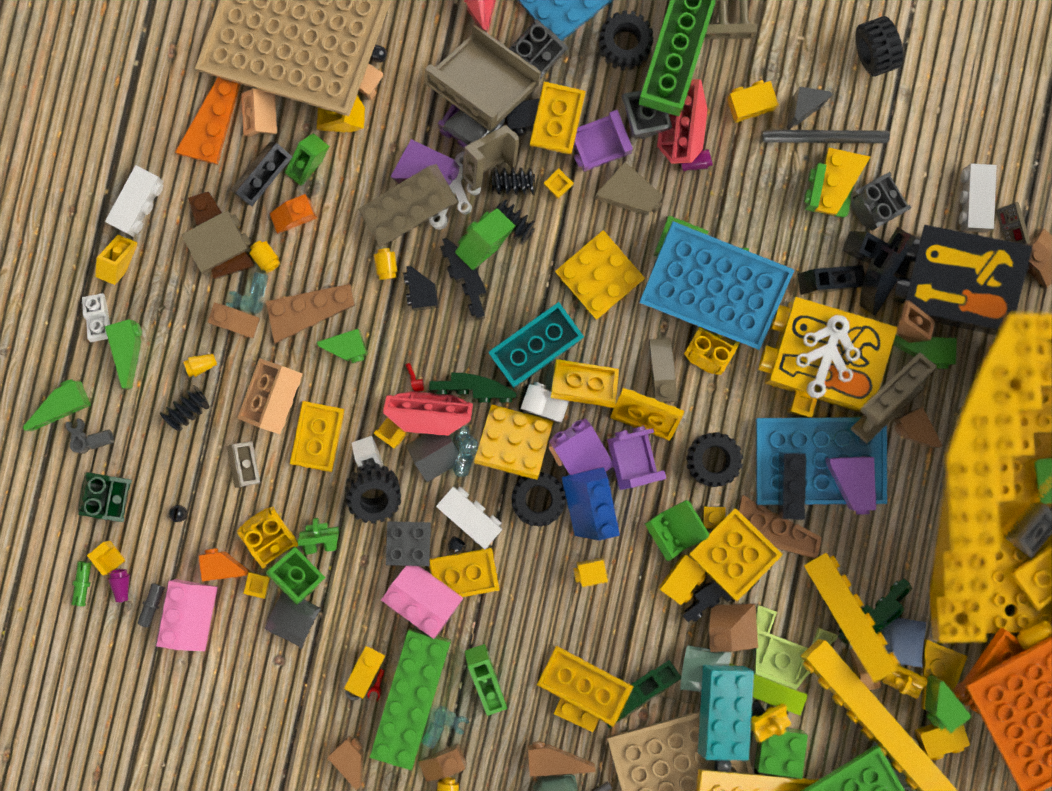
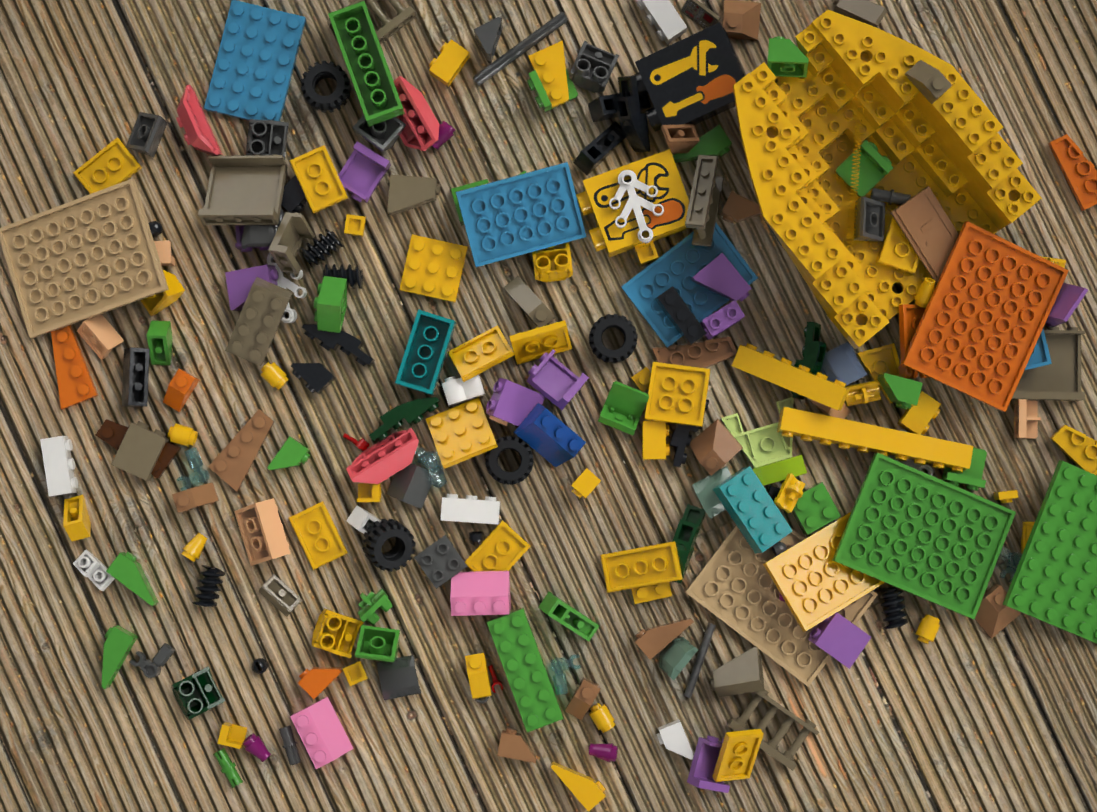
camera: 40 degrees left, 0 degrees up
(828, 518) = (722, 319): none -> medium lavender panel

